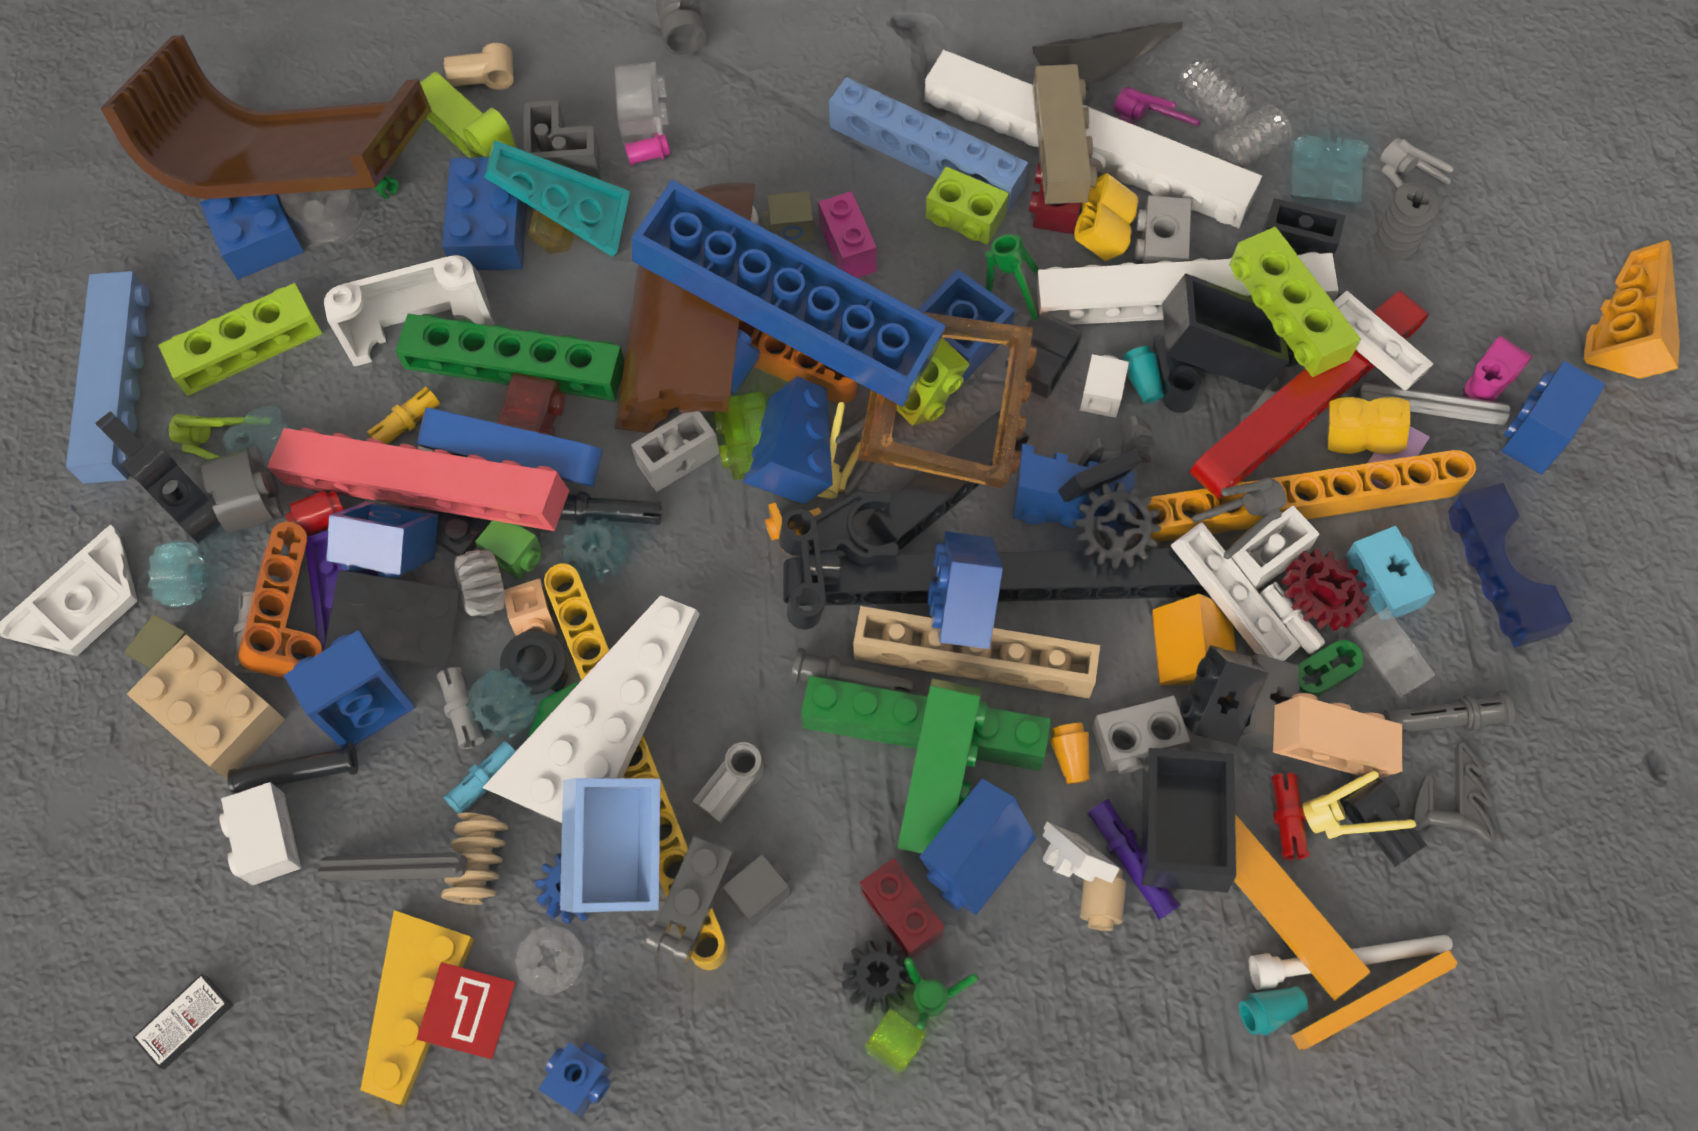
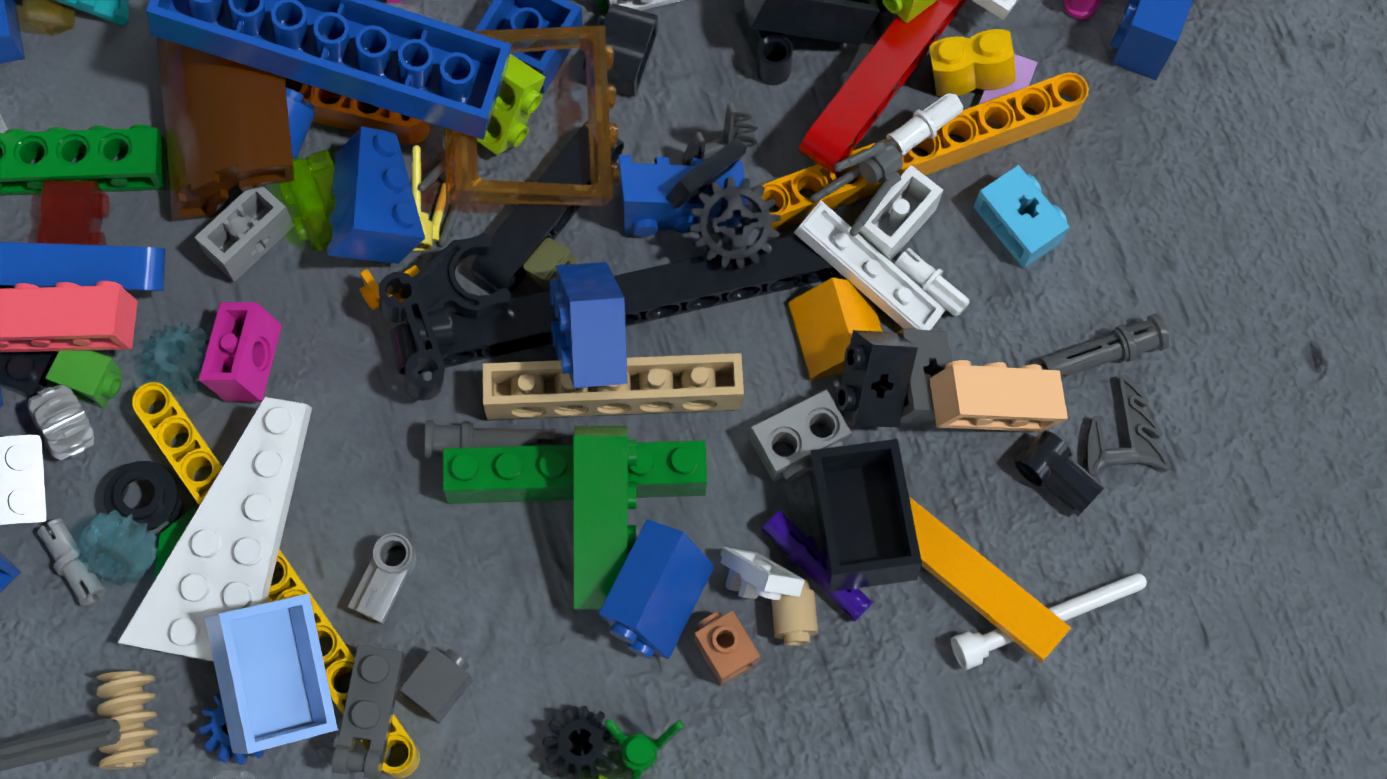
camera: 20 degrees left, 5 degrees up
(471, 787) = (105, 642): medium azure pin -> none
(529, 608) = (122, 438): light nougat bracket -> none
(582, 505) = (156, 314): black pin -> none
(648, 553) = (240, 351): none -> dark pink brick
(901, 909) = (591, 670): dark red brick -> none
(934, 528) = (543, 262): none -> olive slope
(1031, 915) = (725, 646): none -> nougat brick
(1072, 752) = (734, 469): light orange cone -> none
(1104, 385) = (692, 71): white brick -> none
(1144, 373) = (731, 49): teal cone -> none
(1271, 1009) = (981, 686): teal cone -> none
(1289, 816) = (965, 488): red pin -> none
(1314, 470) = (925, 123): none -> white axle
(1322, 662) = (970, 322): green beam -> none
(1325, 589) = (959, 246): dark red gear -> none
(1326, 812) = (1001, 474): light yellow plant -> none
(1374, 1000) = (1080, 654): light orange tile -> none
(1392, 654) = (1037, 299): clear brick -> none
(1441, 404) = (1040, 25): light grey axle -> none
(1524, 607) = (1160, 222): clear blue arch -> none

